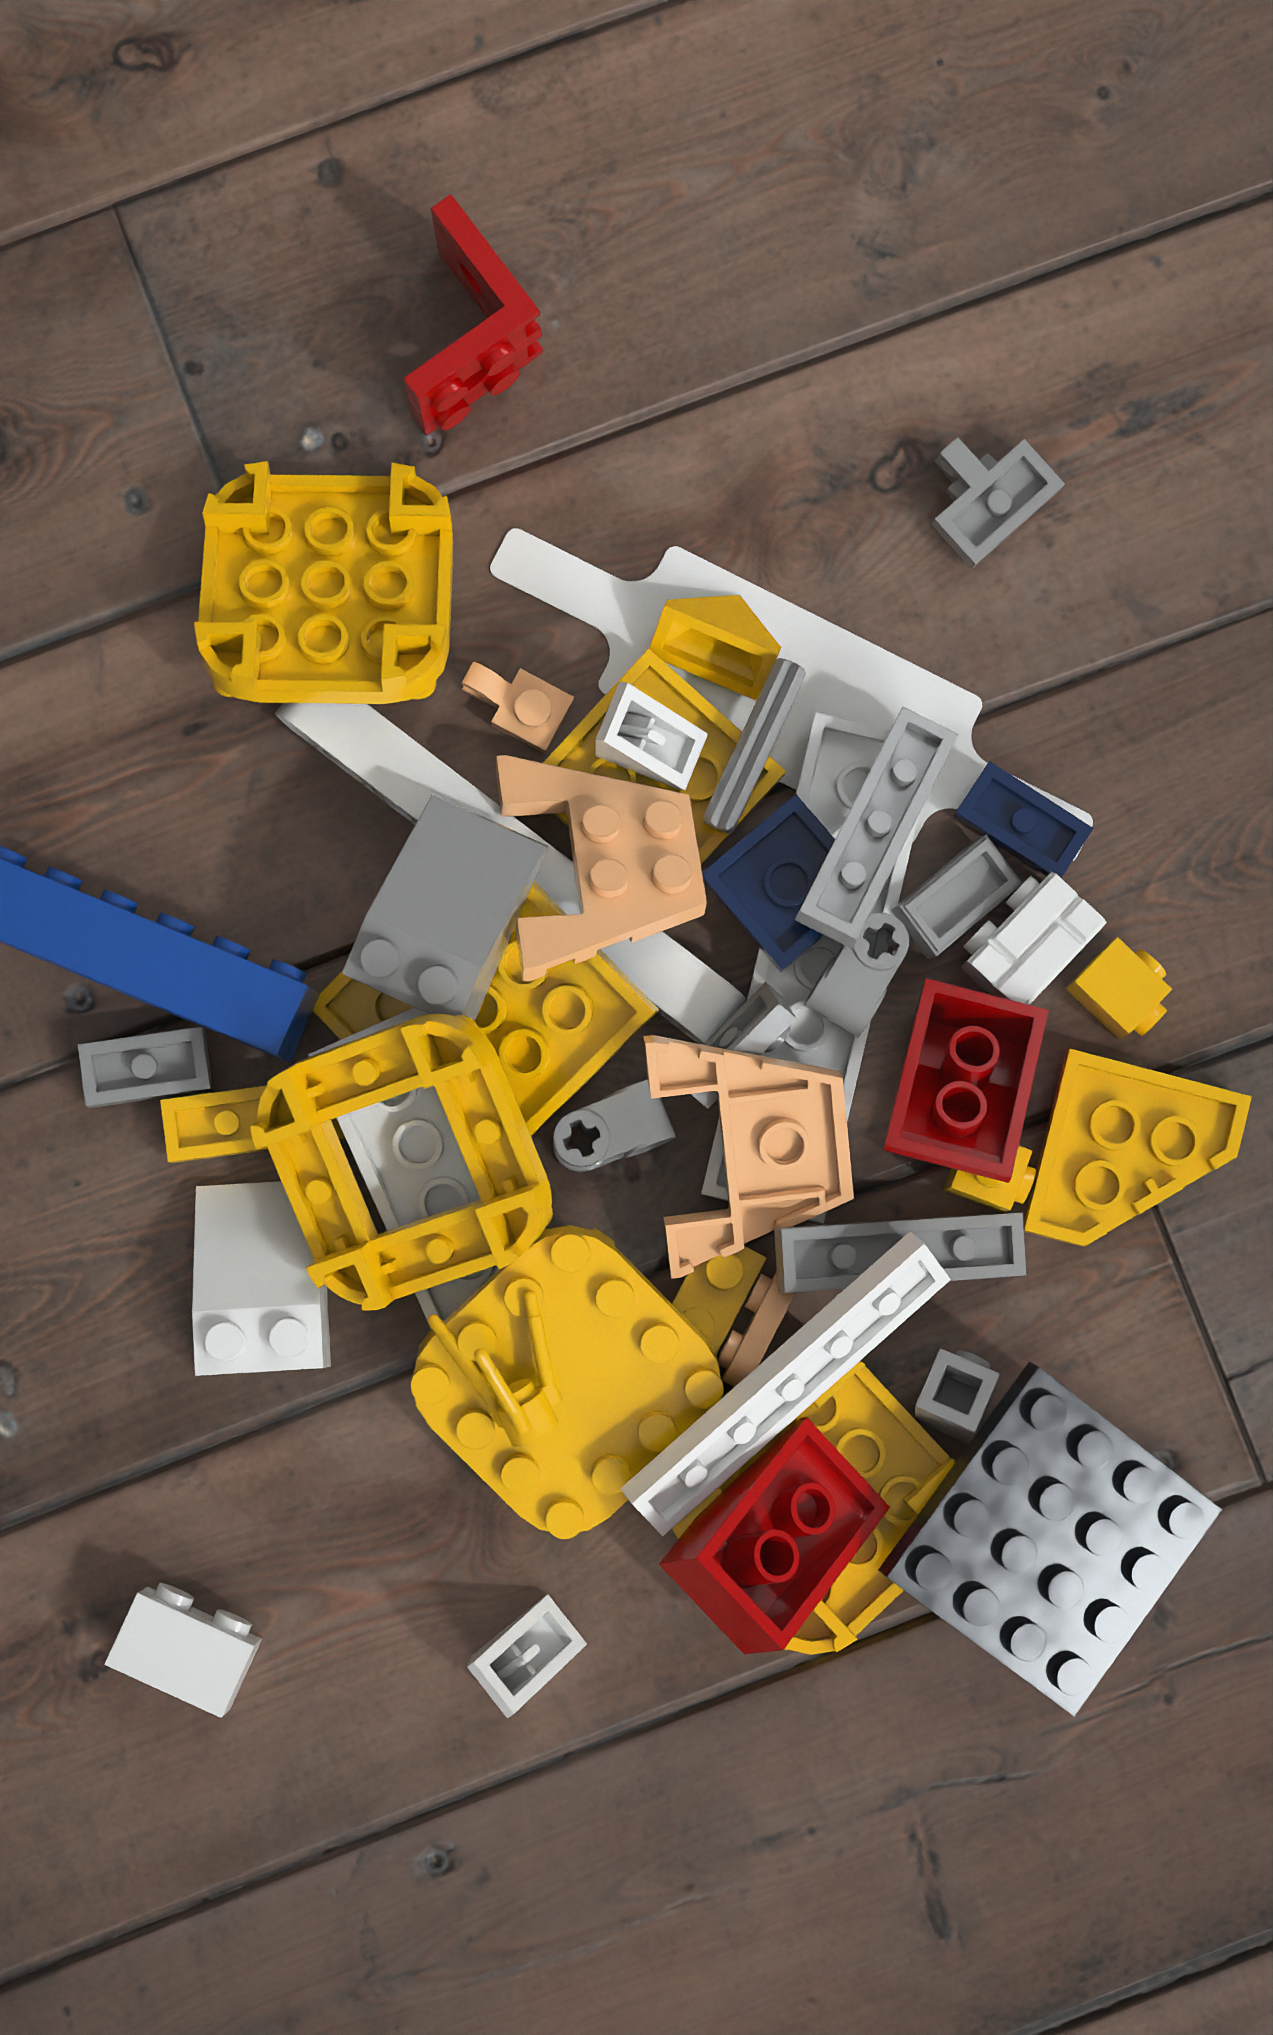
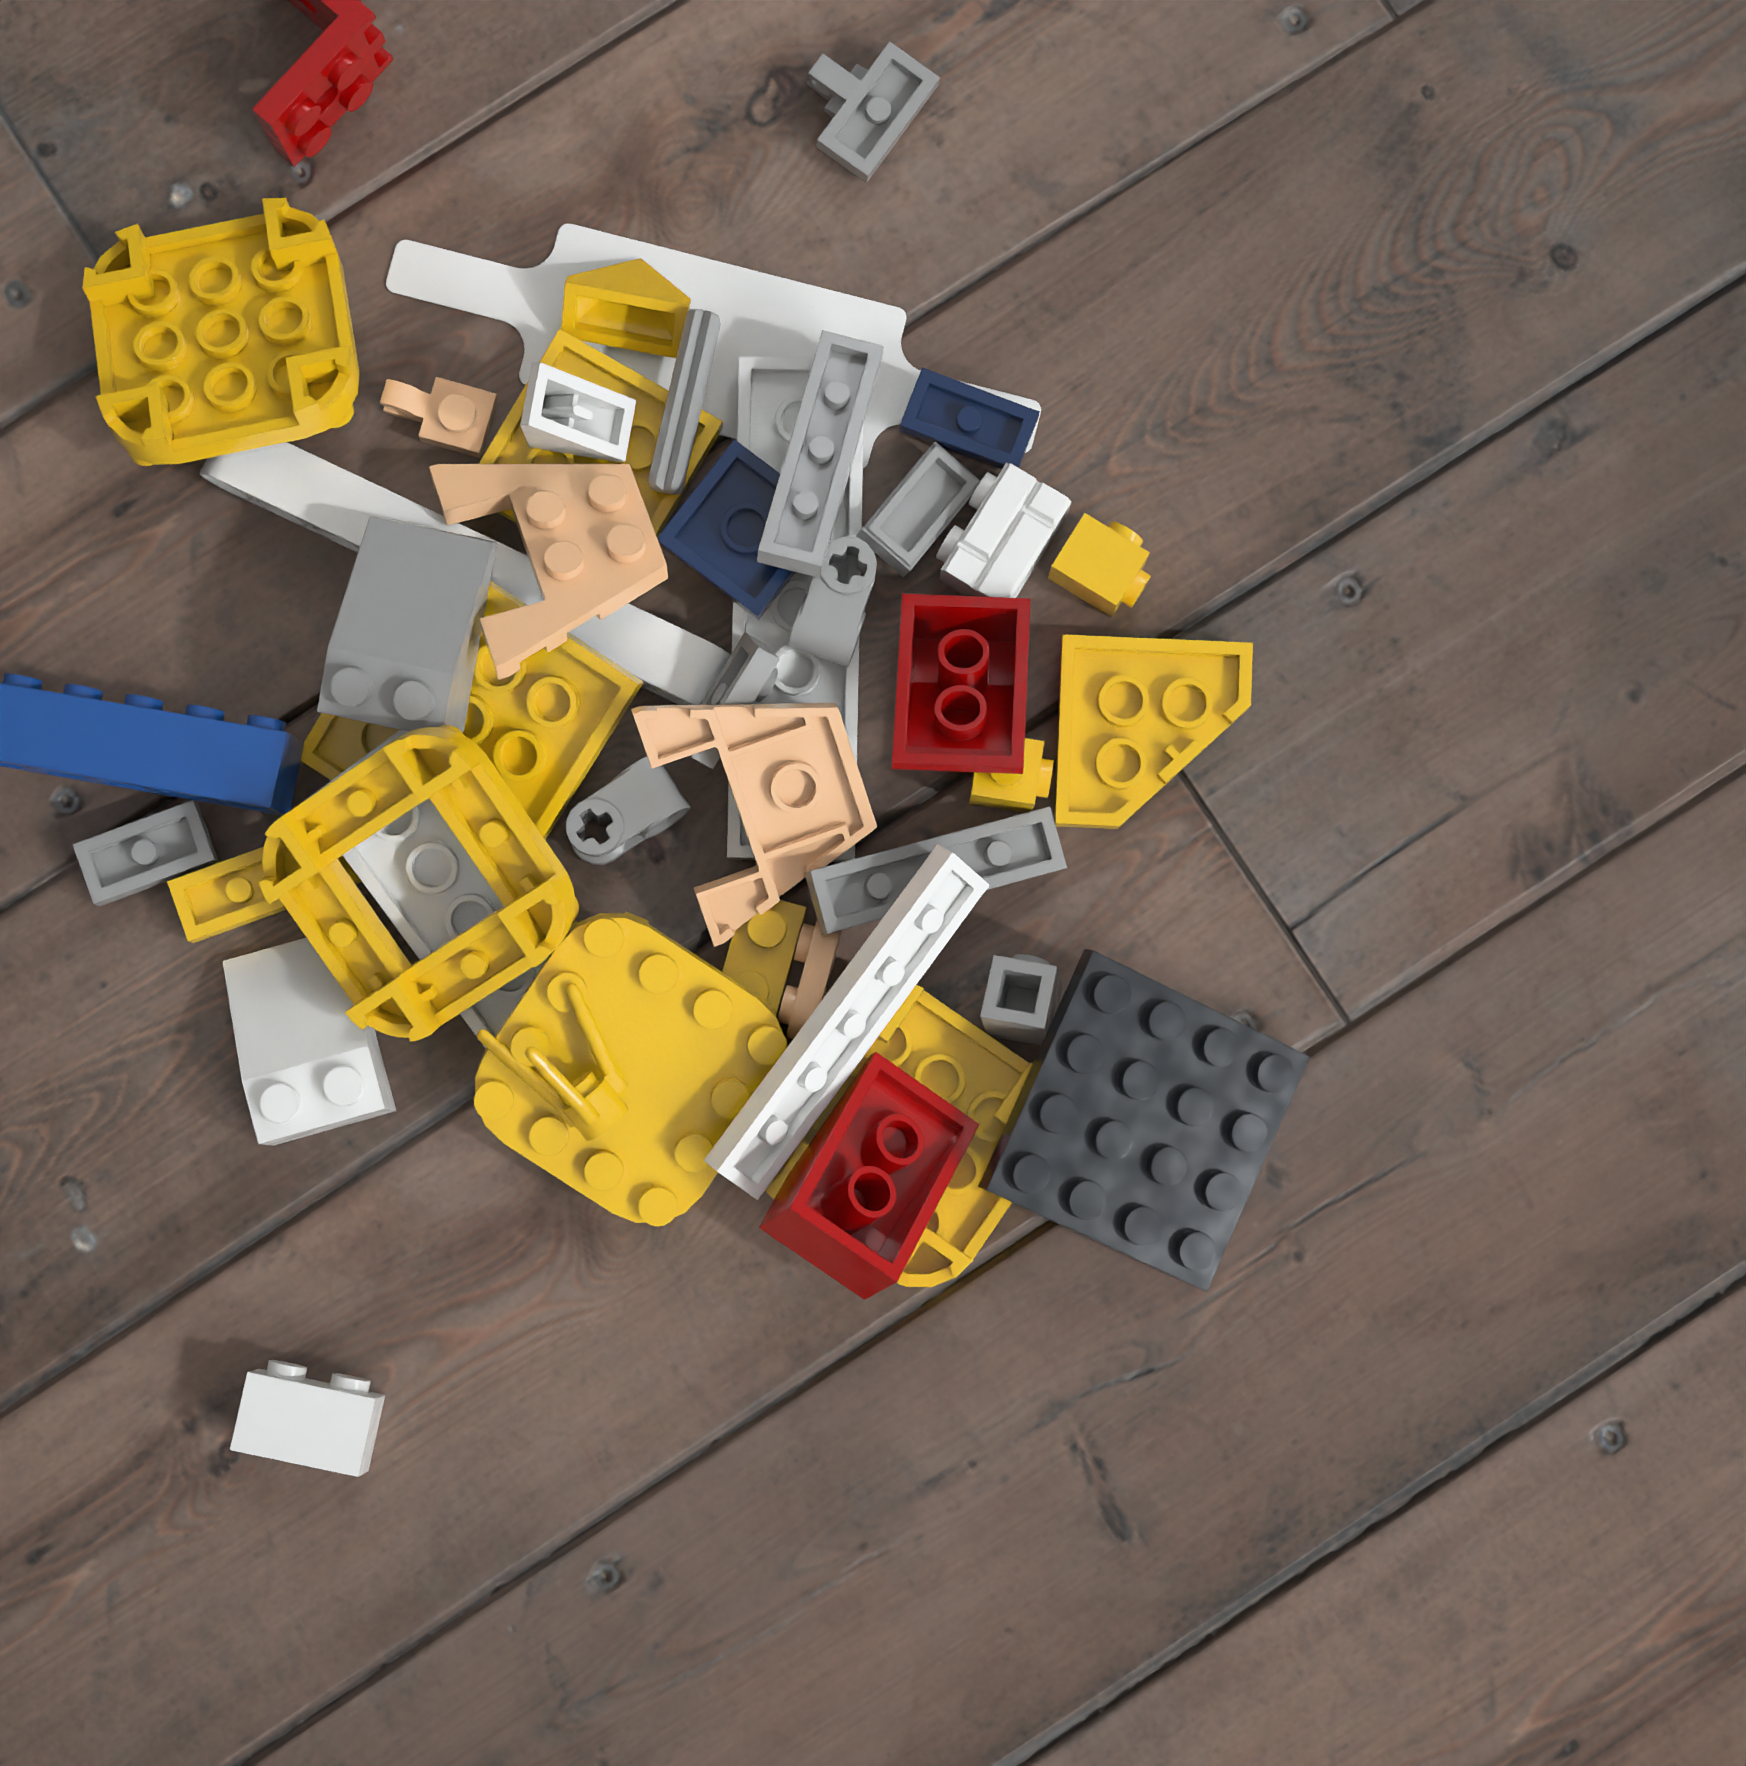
camera: 10 degrees left, 0 degrees up
(526, 1655) = (650, 1350): white slope -> none

